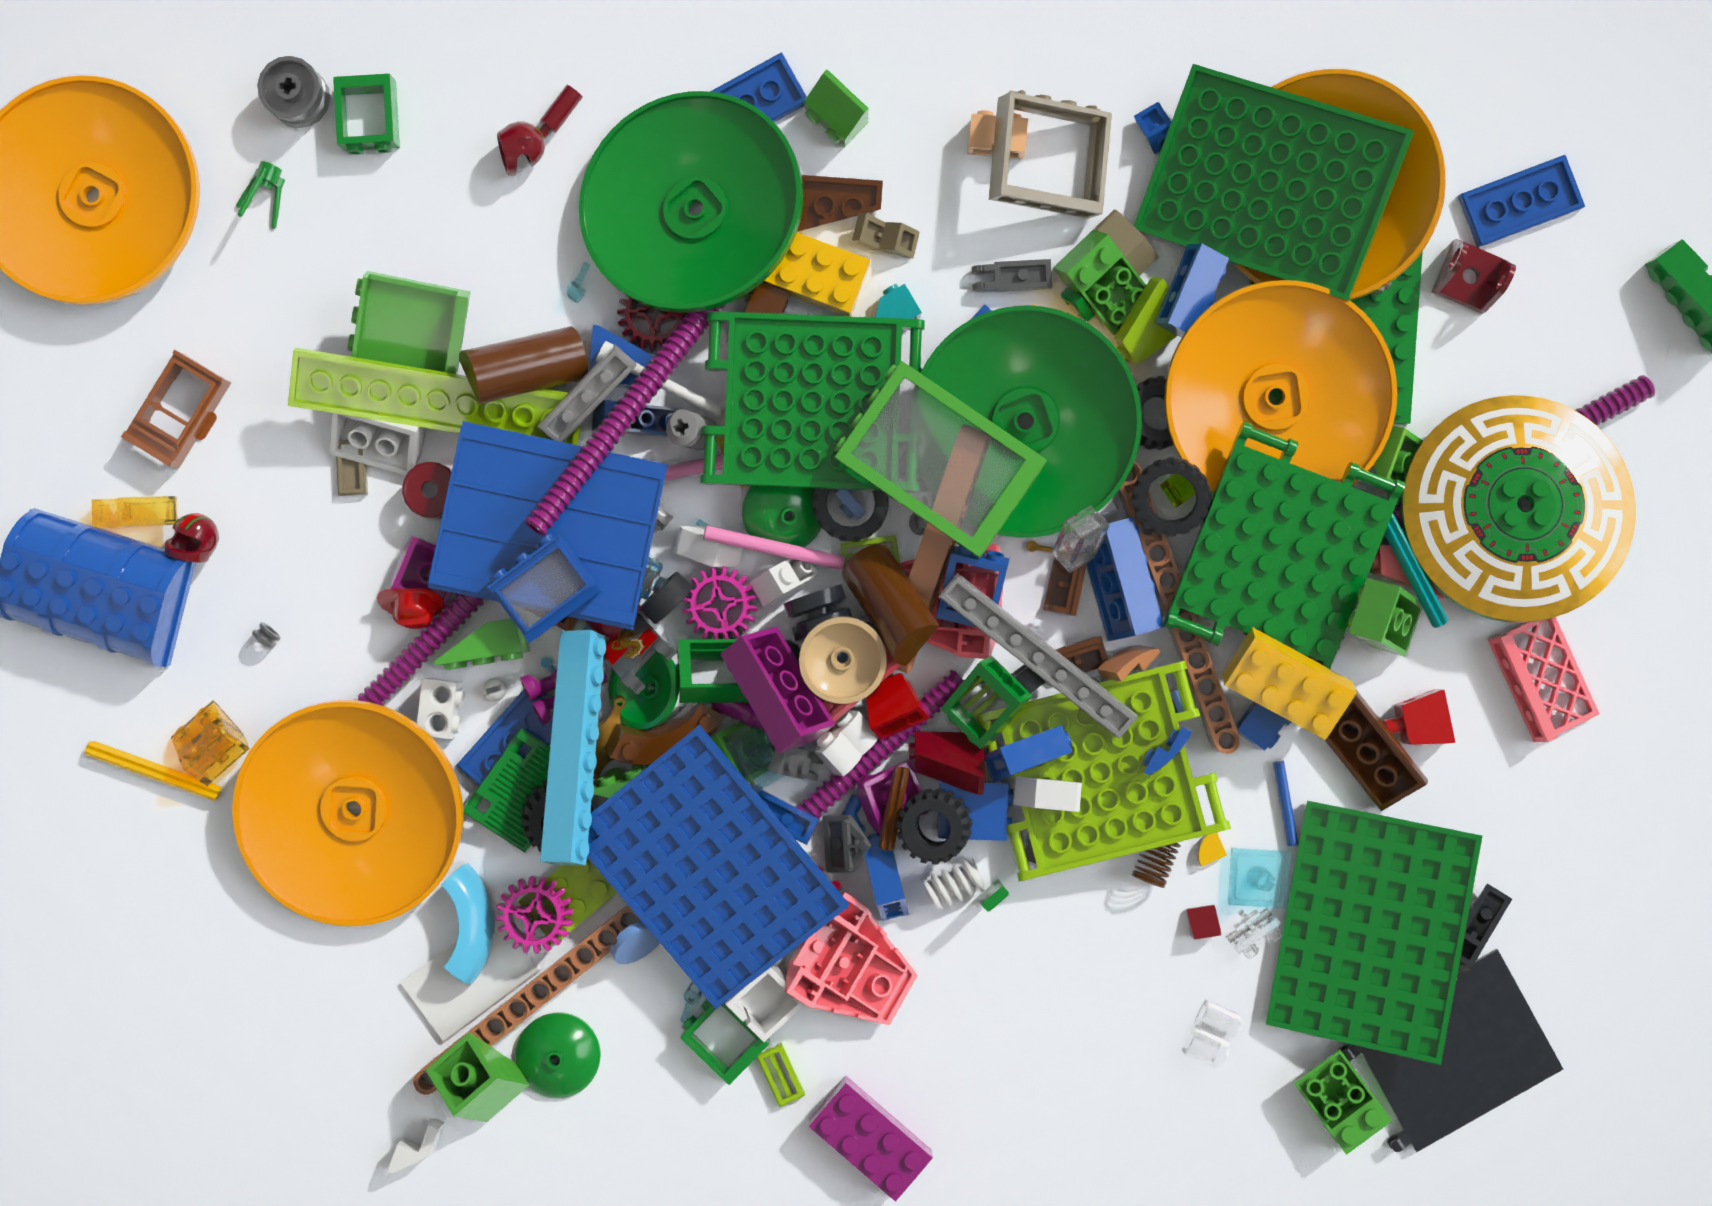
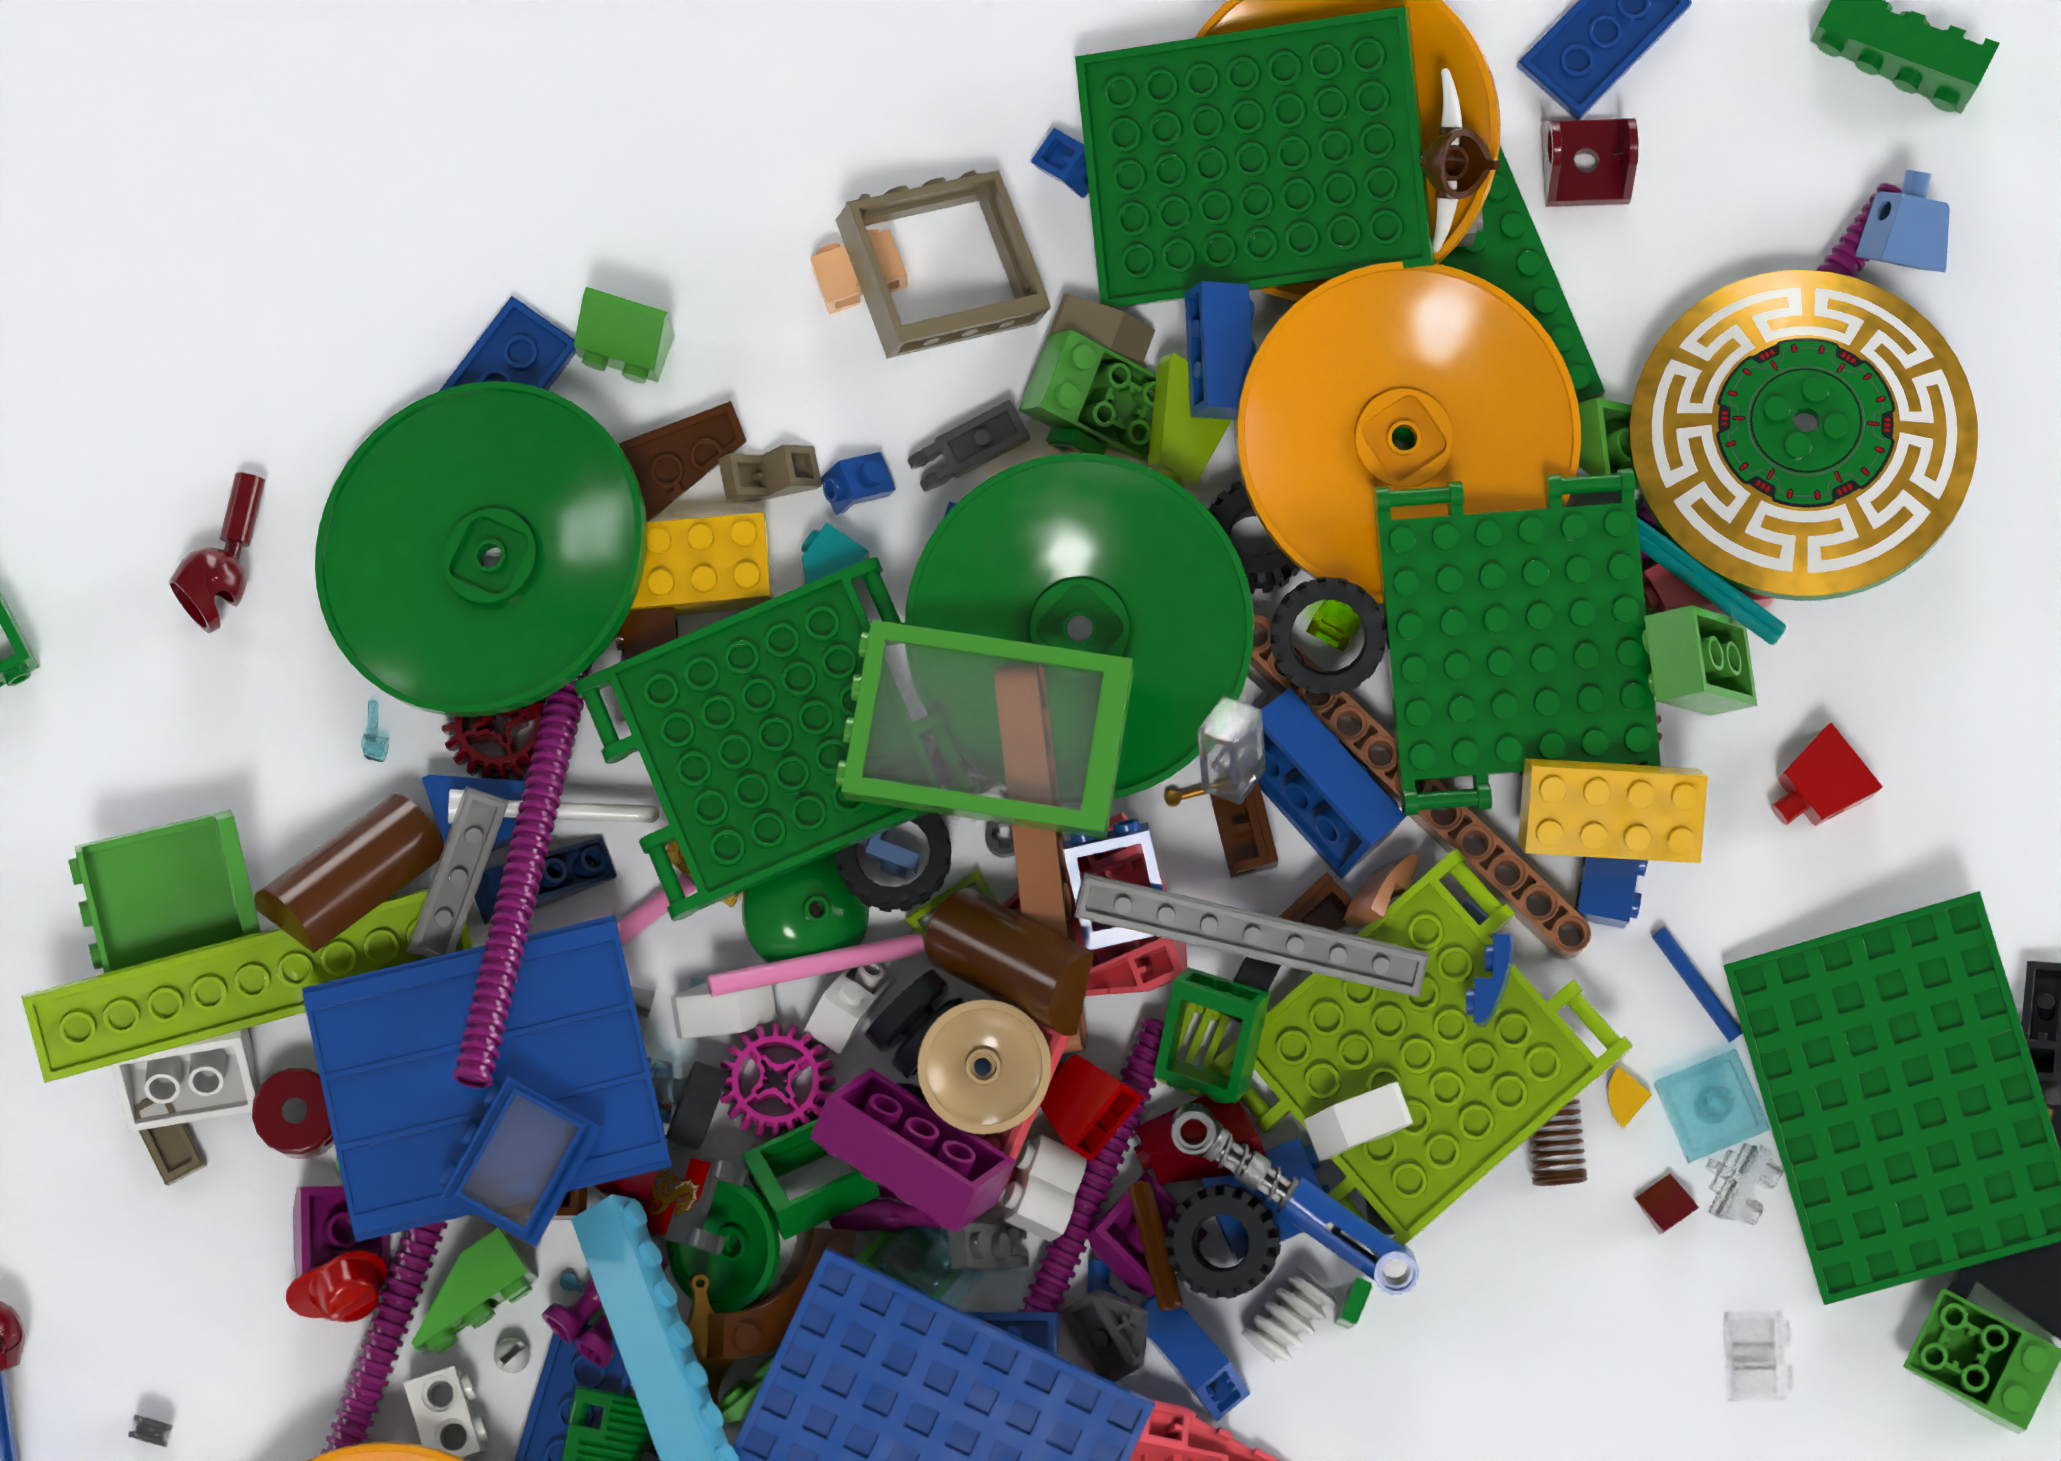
camera: 25 degrees left, 10 degrees down
(685, 429) = (618, 858): light grey piece -> none
(935, 266) = (857, 482): none -> blue bracket
(989, 825) = (1299, 1202): none -> piece
(1028, 753) = (1303, 1078): blue slope -> none
(1374, 755) = (1778, 856): reddish brown brick -> none
(1394, 243) = (1454, 161): none -> reddish brown helmet
(1526, 691) = (1943, 674): coral fence -> none
(1646, 410) = (1907, 227): none -> medium blue torso

